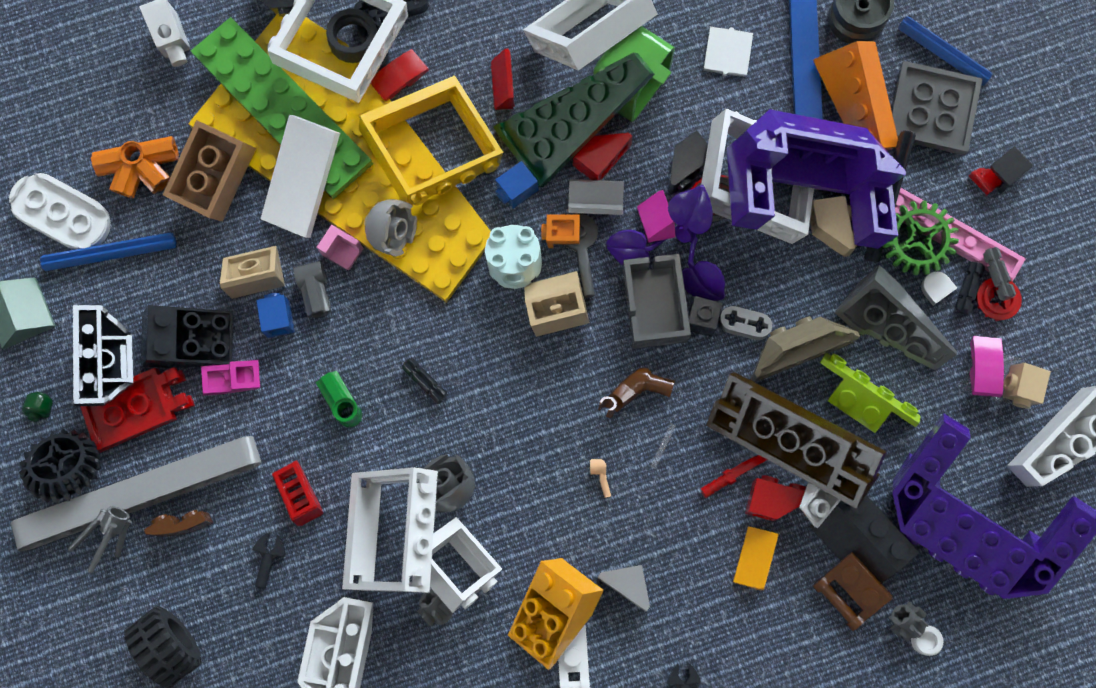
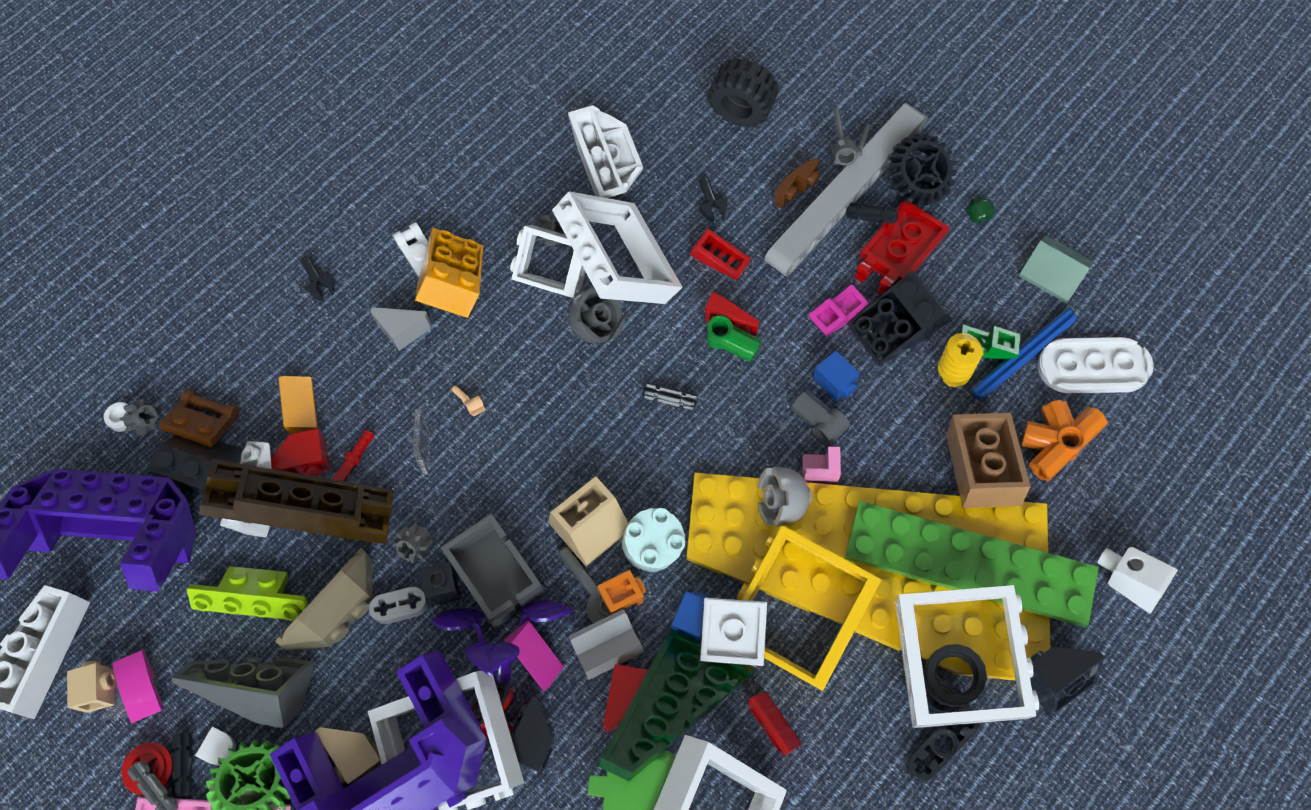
camera: 150 degrees right, 10 degrees down
(99, 356) = (955, 258): wedge -> none
(130, 275) = (996, 344): none -> green slope
(134, 450) = (872, 213): none -> black axle
(165, 265) = (959, 359): none -> yellow piece
(251, 272) = (885, 402): tan slope -> none
(300, 176) = (901, 501): white tile -> none
(331, 429) = (720, 306): none -> red slope
(397, 74) = (881, 667): red slope -> none
(493, 146) = (734, 631): none -> white tile
(632, 387) = (477, 486): reddish brown arm -> none
(710, 363) = (413, 543): none -> dark grey gear

